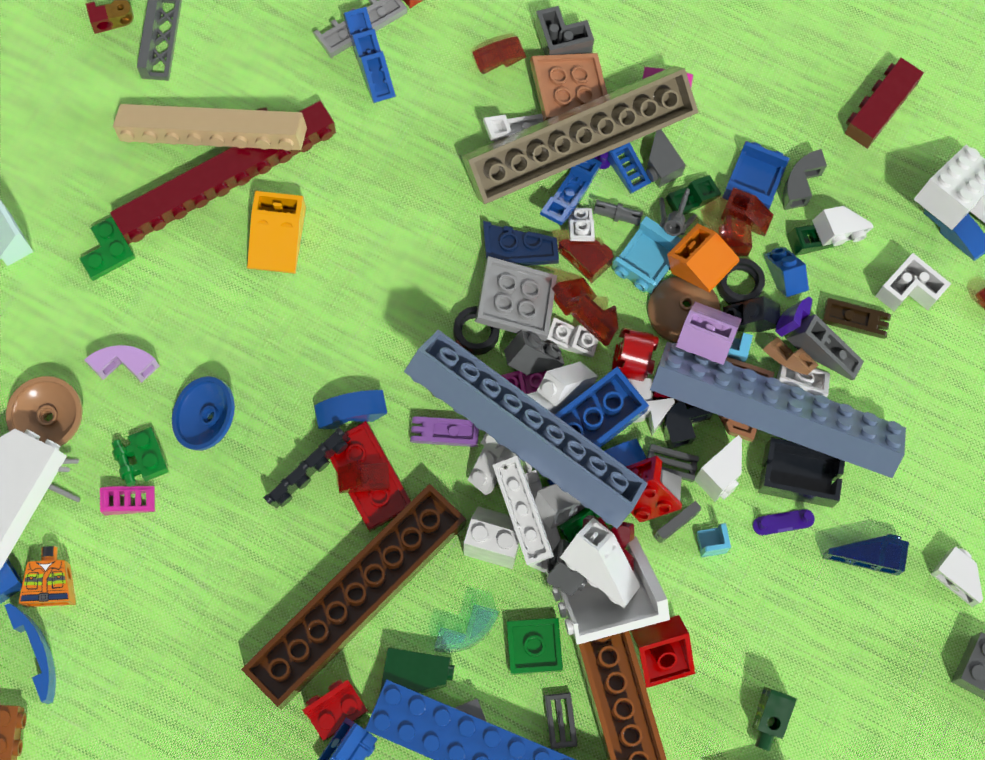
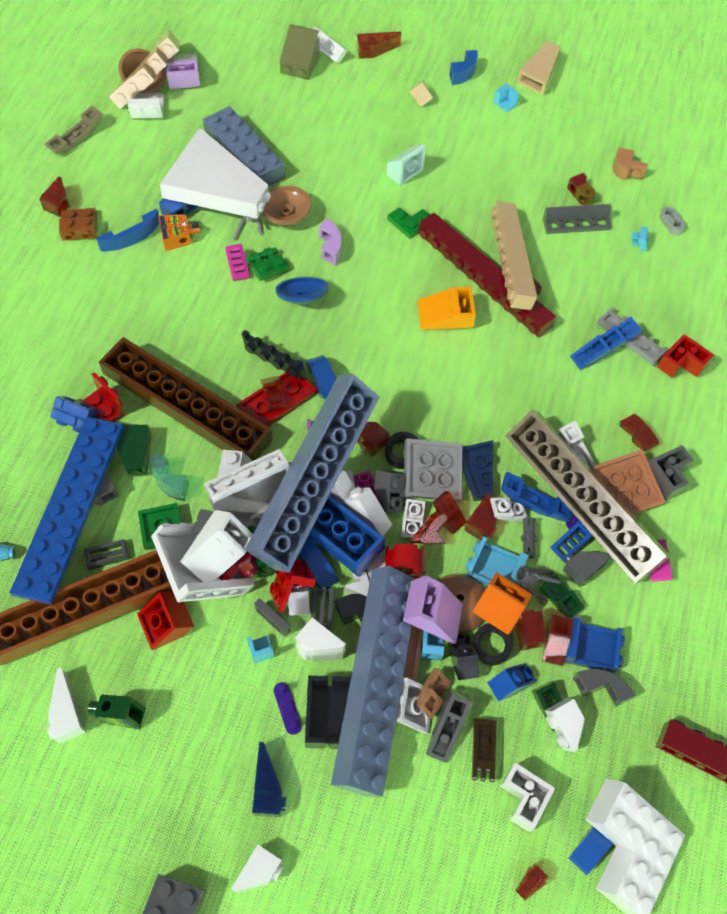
camera: 80 degrees right, 10 degrees down
(792, 316) = (469, 687): dark purple slope -> none

